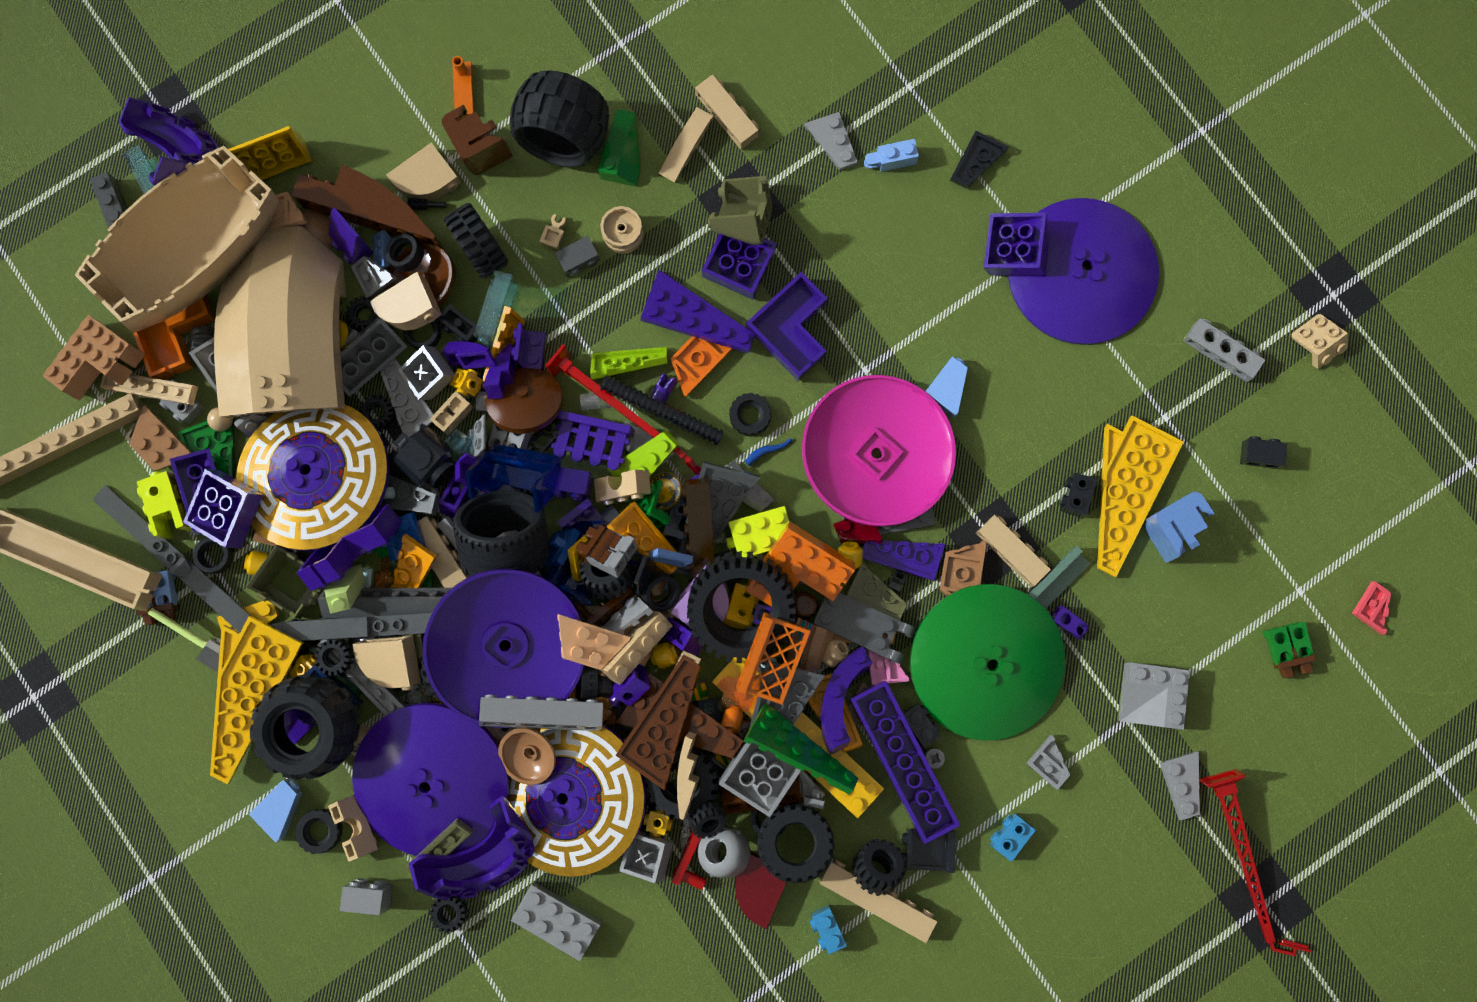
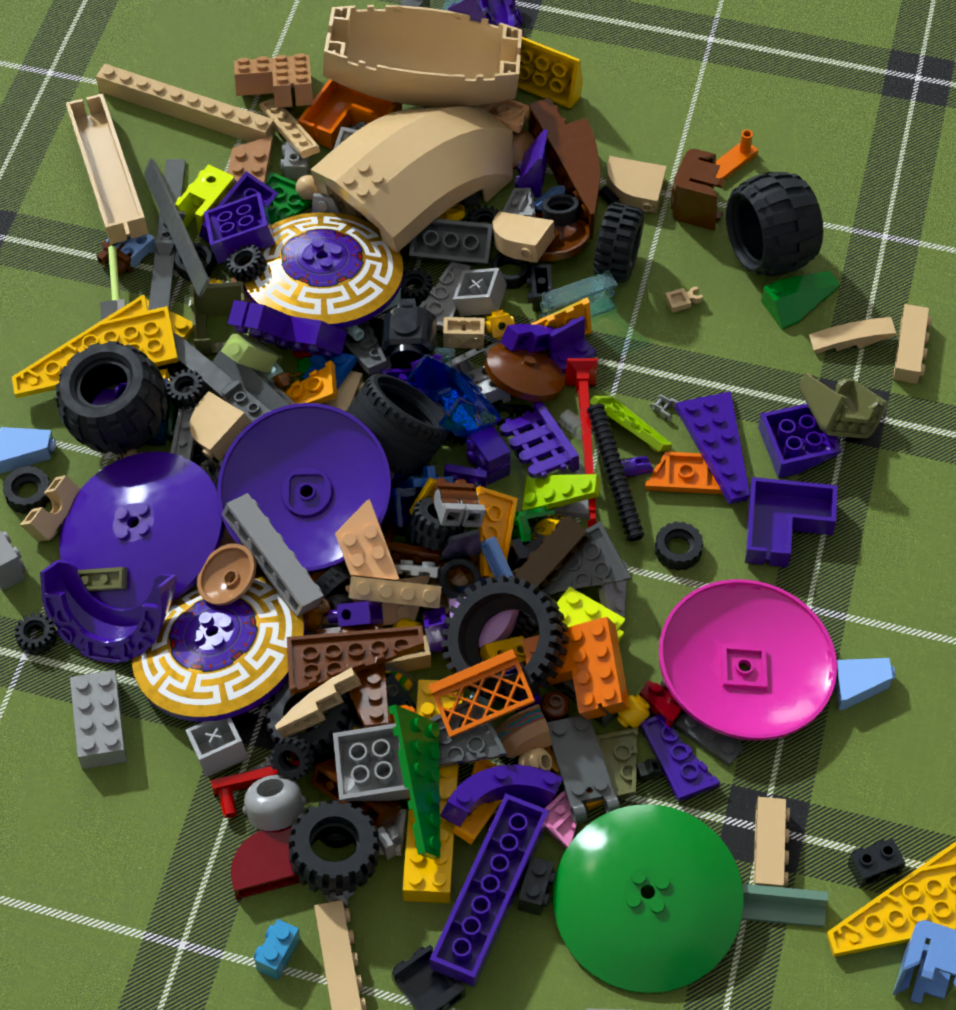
camera: 45 degrees right, 25 degrees down
(167, 546) = (176, 227): none -> dark grey piece
(253, 532) = (240, 257): none -> black tyre
(468, 355) = (521, 306): dark purple slope -> none
(577, 257) = (680, 327): dark grey brick -> none
(612, 489) = (529, 491): tan arch -> none
(622, 230) = (734, 340): tan wheel -> none
(636, 331) = (668, 402): none -> light grey piece
(666, 823) = (255, 734): yellow brick -> none
(731, 695) = (424, 700): clear orange plate -> none
(755, 455) = (657, 579): blue animal -> none
(871, 878) = (361, 949): black tyre -> none
(931, 756) = (516, 929): light grey wheel -> none
(962, 568) = (717, 812): medium nougat wing -> none
(1069, 622) = (752, 945): dark purple leg -> none

